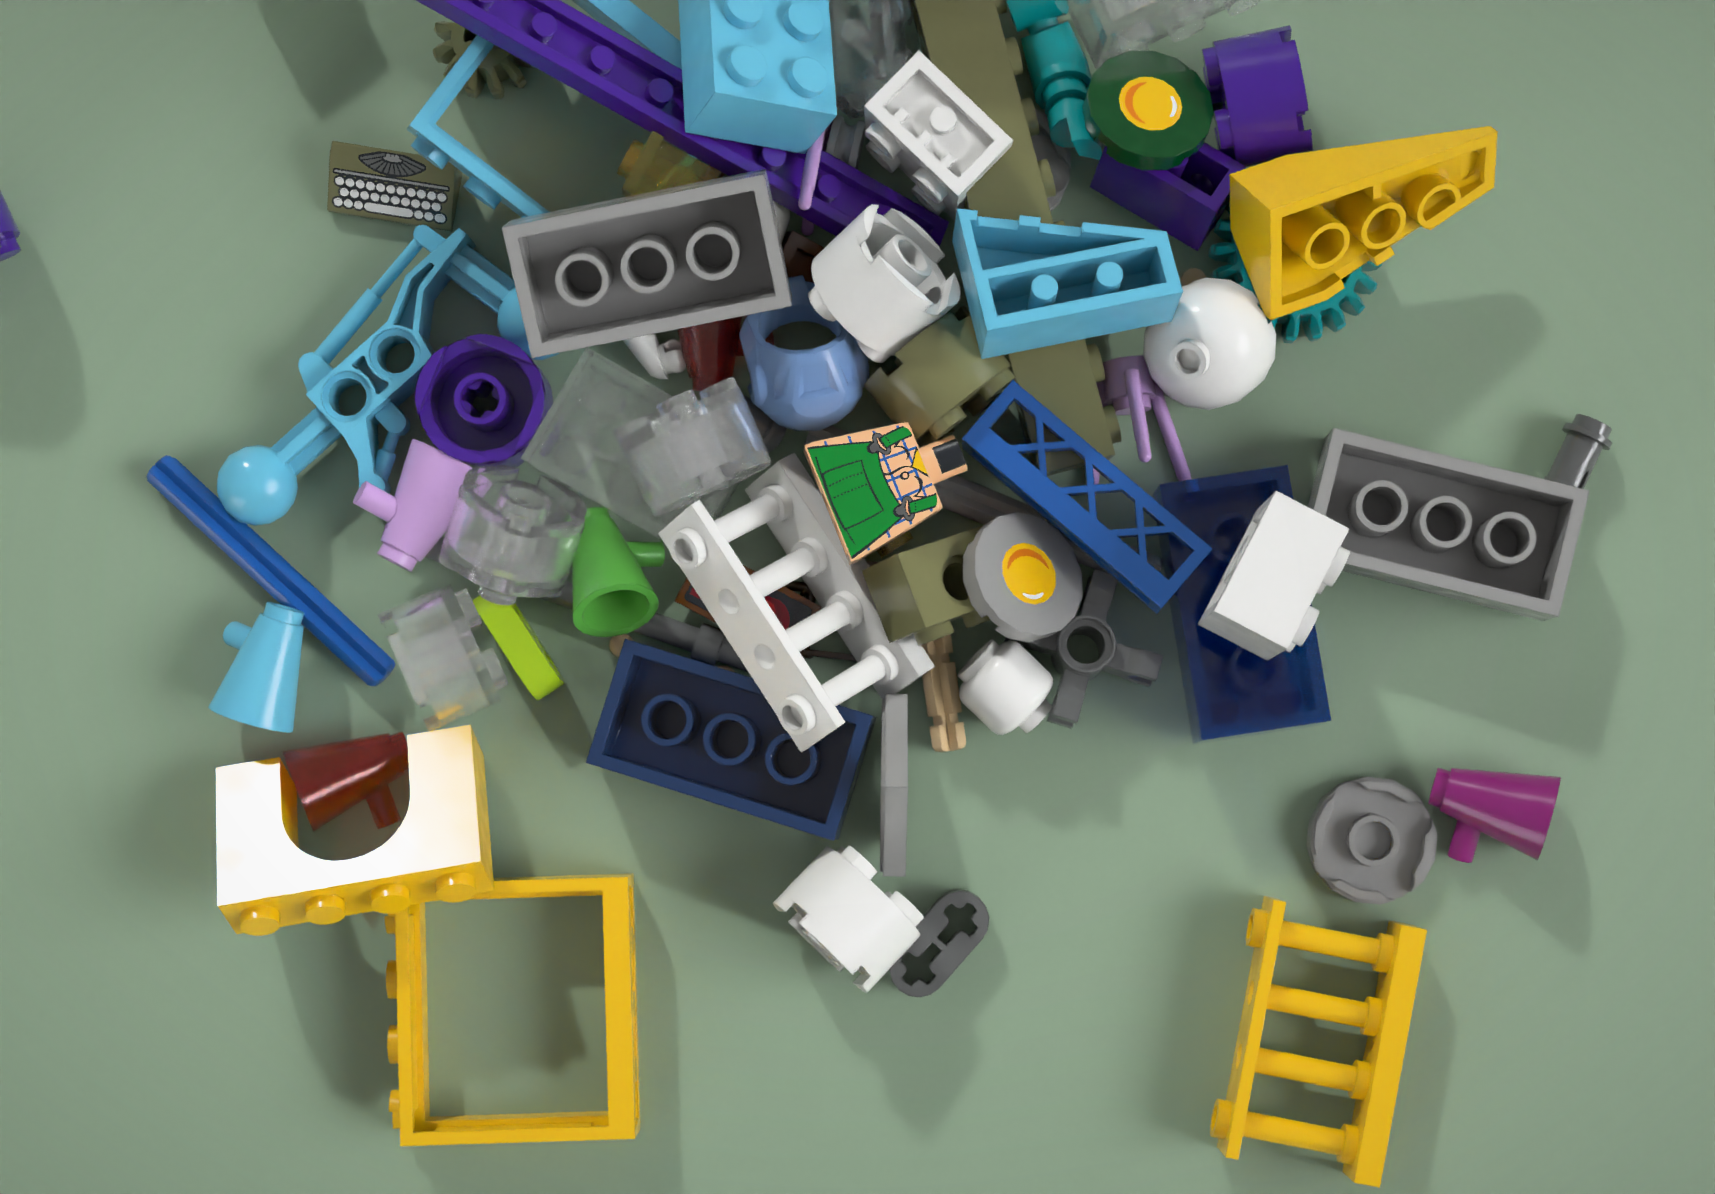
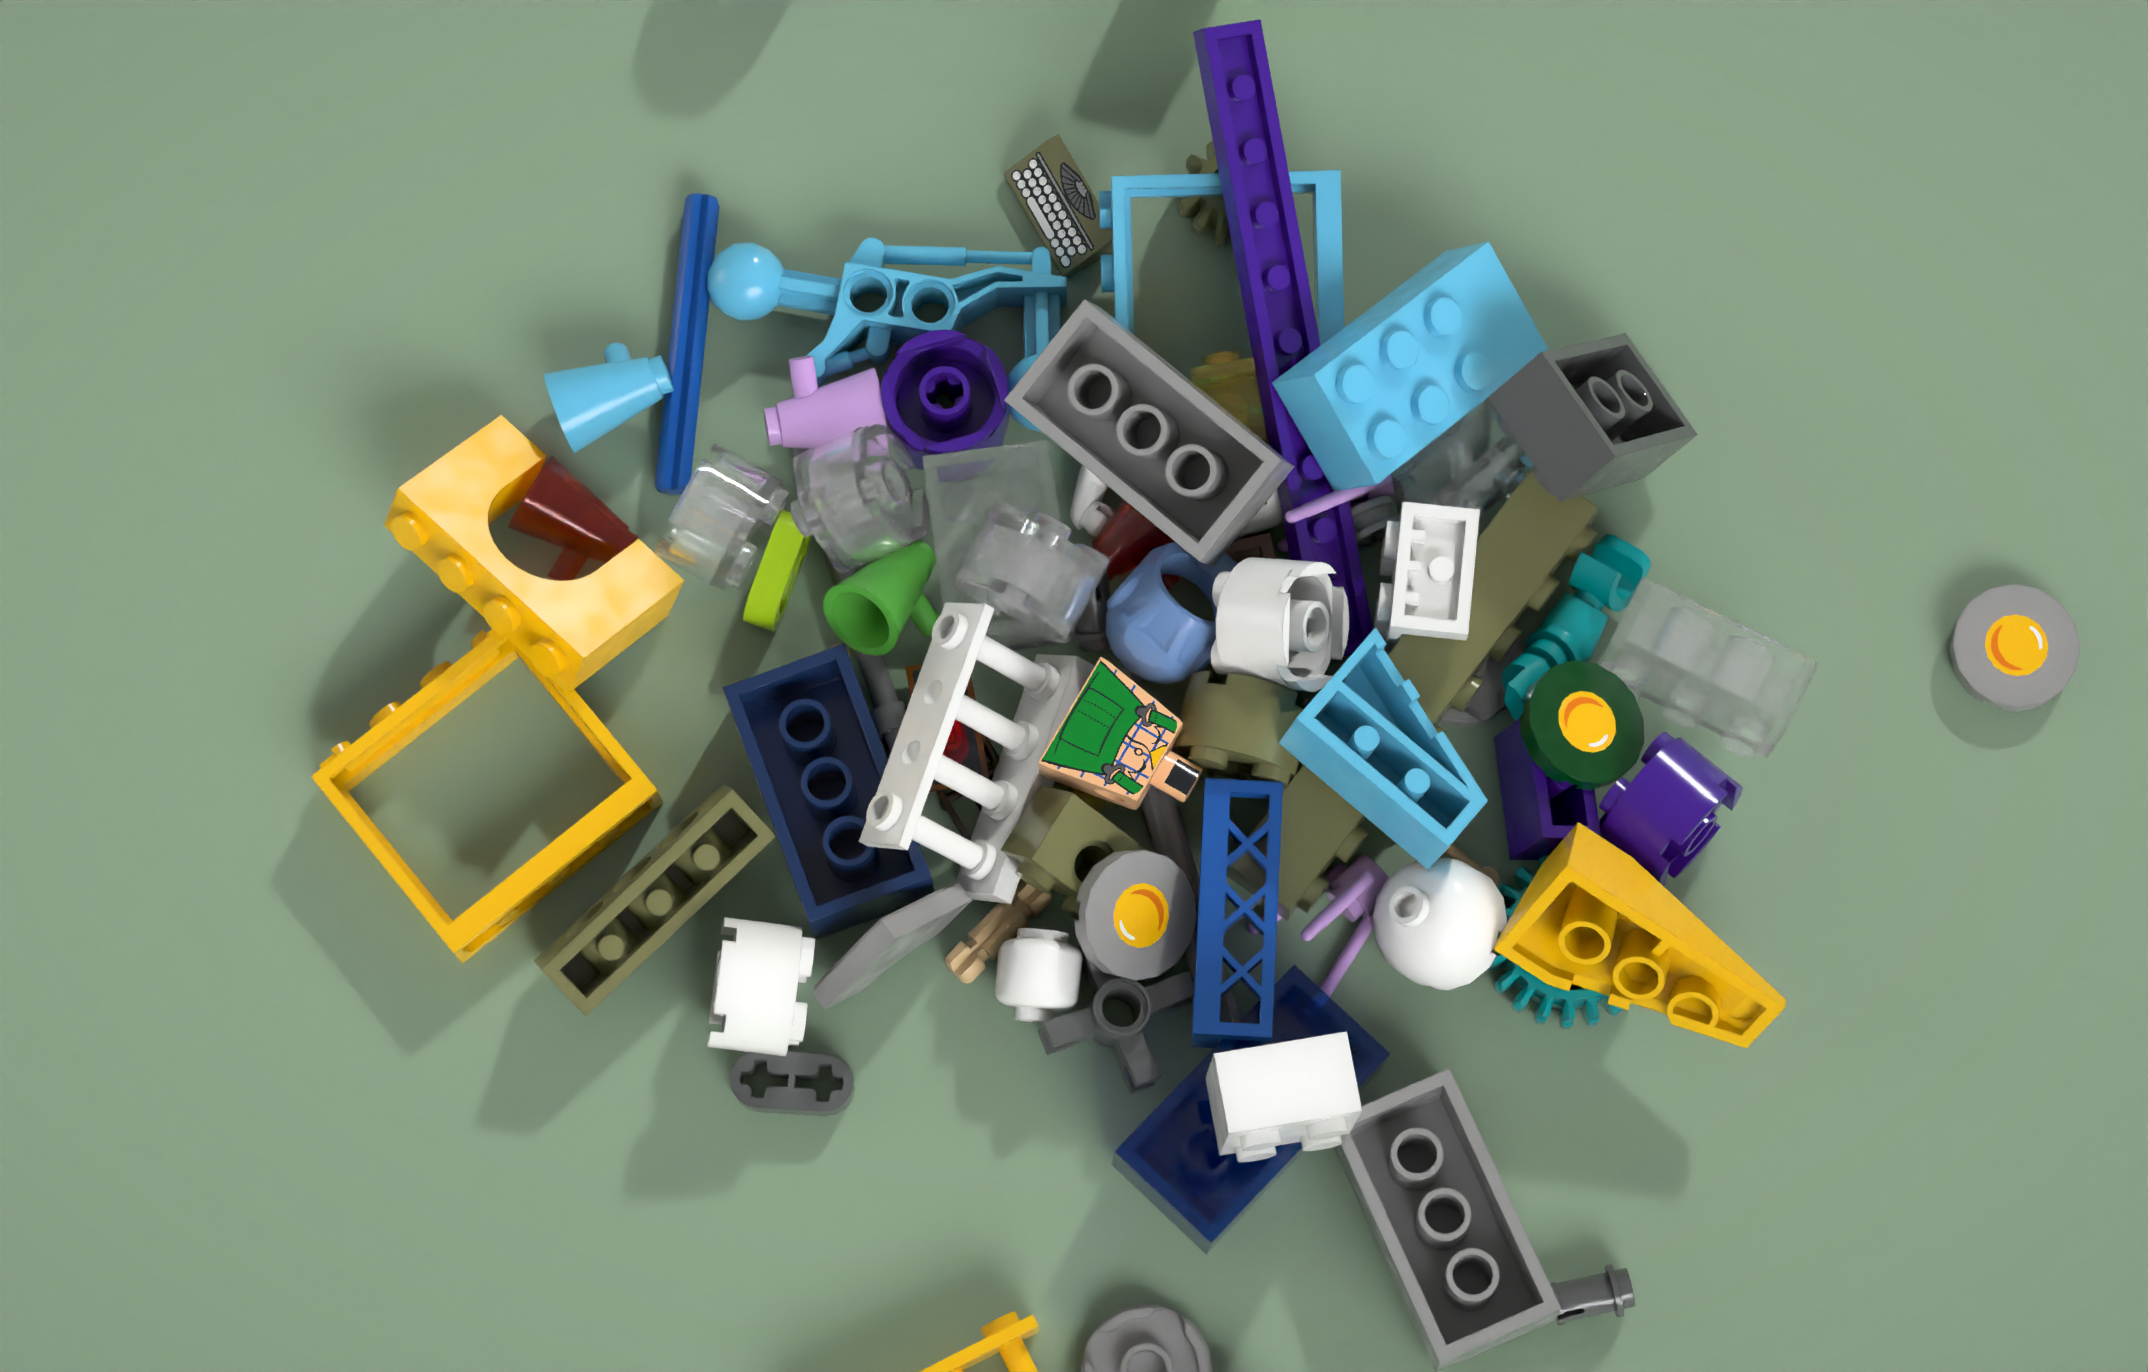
camera: 50 degrees right, 10 degrees down
(713, 946) = (654, 898): none -> olive brick

